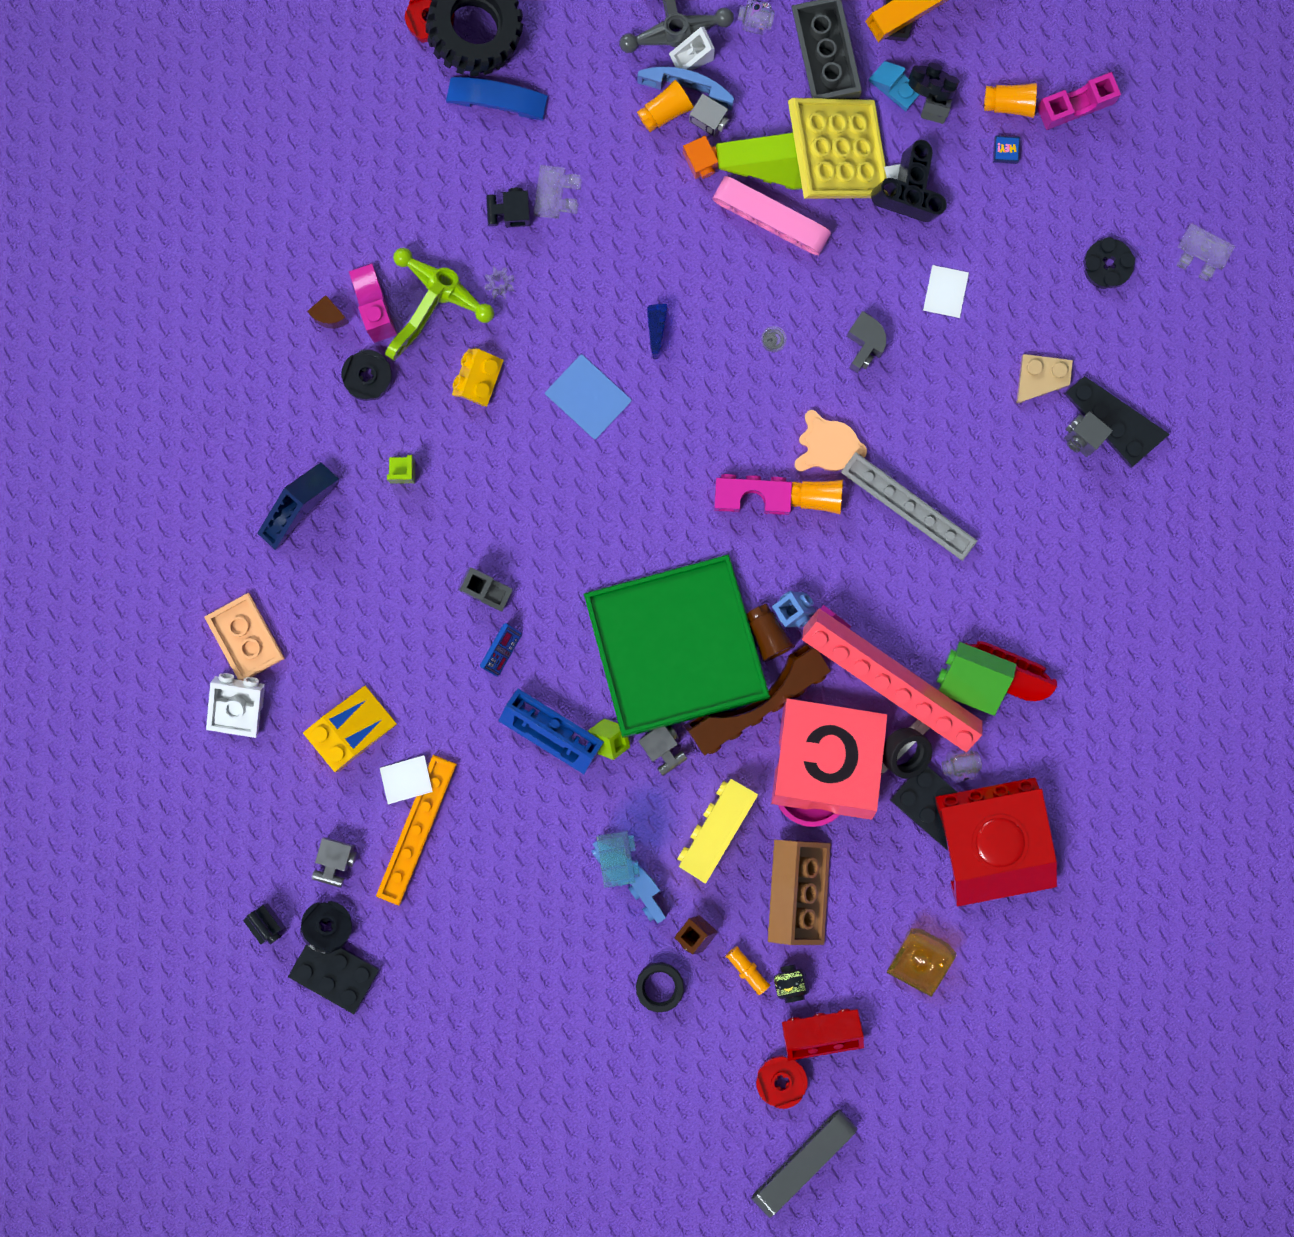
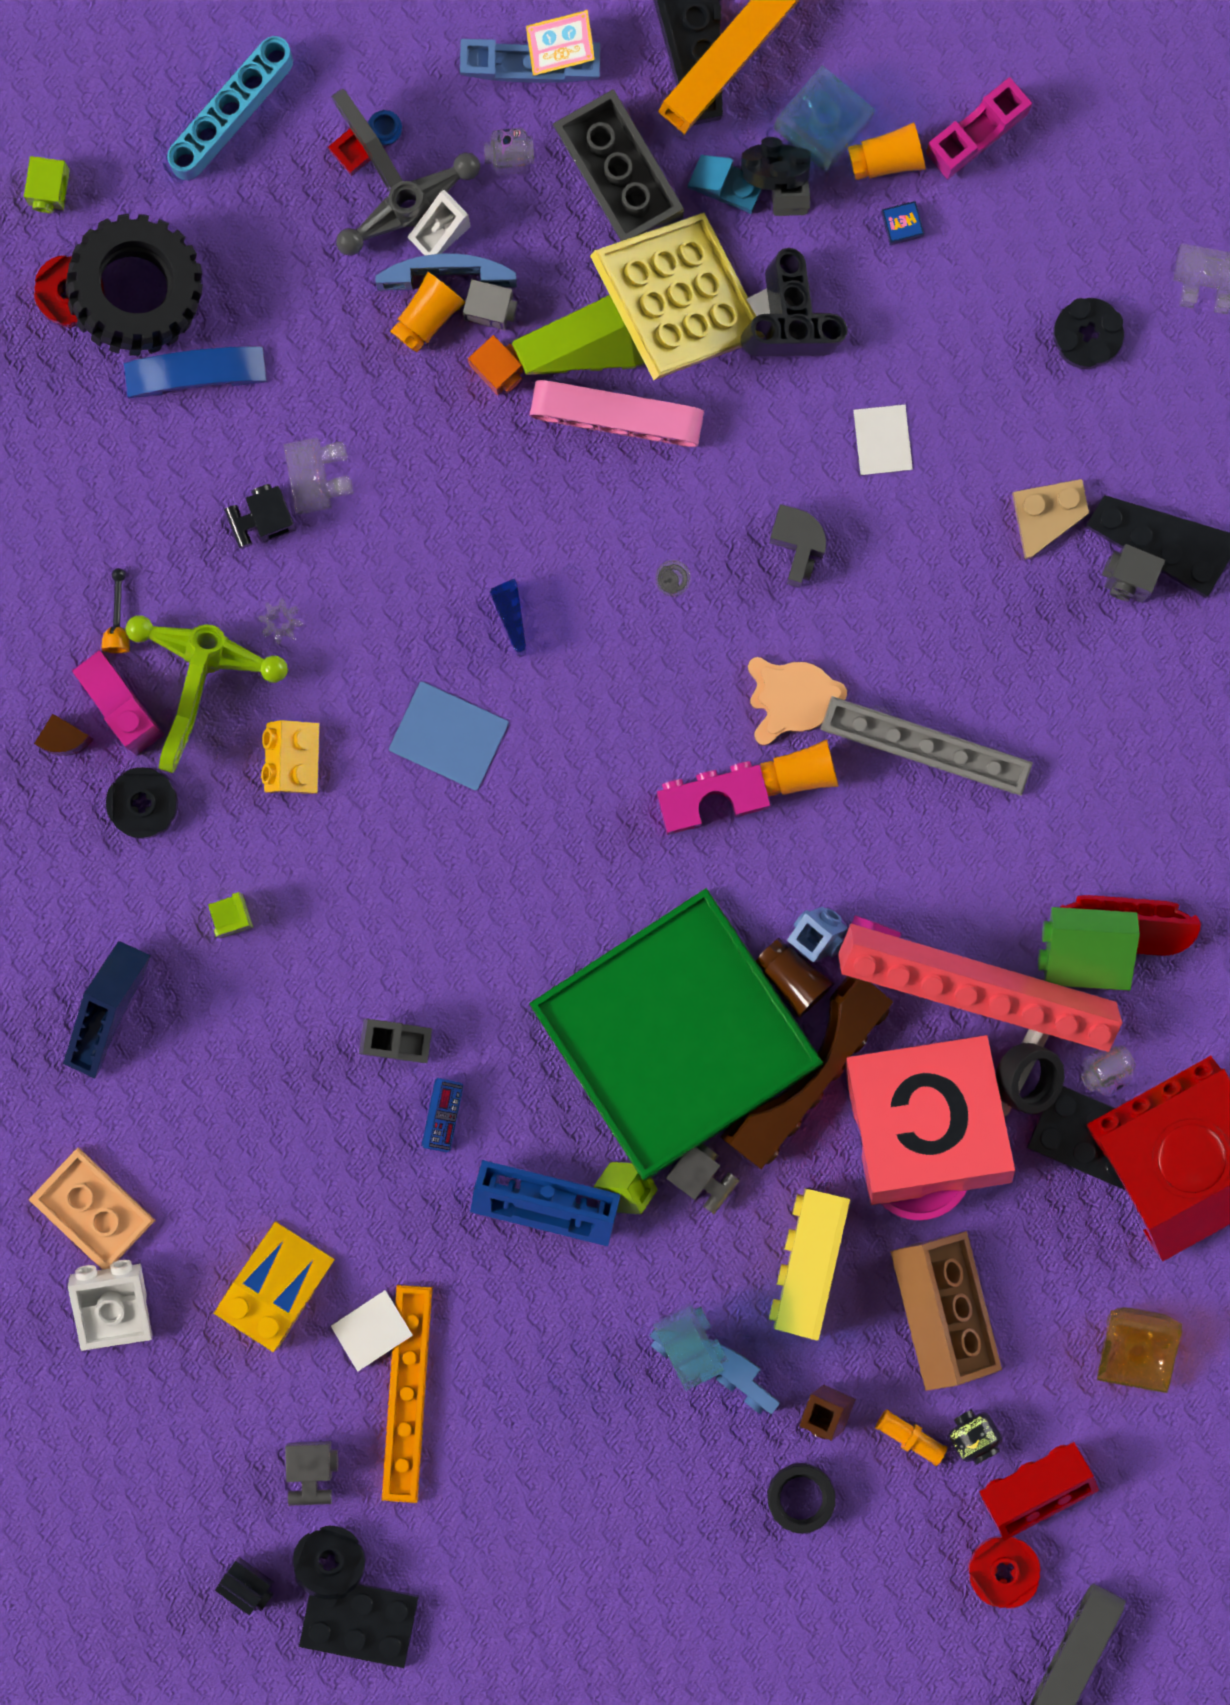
camera: 15 degrees left, 0 degrees up
(384, 259) = (115, 638): none -> hinge
(976, 61) = (824, 118): none -> clear light blue brick

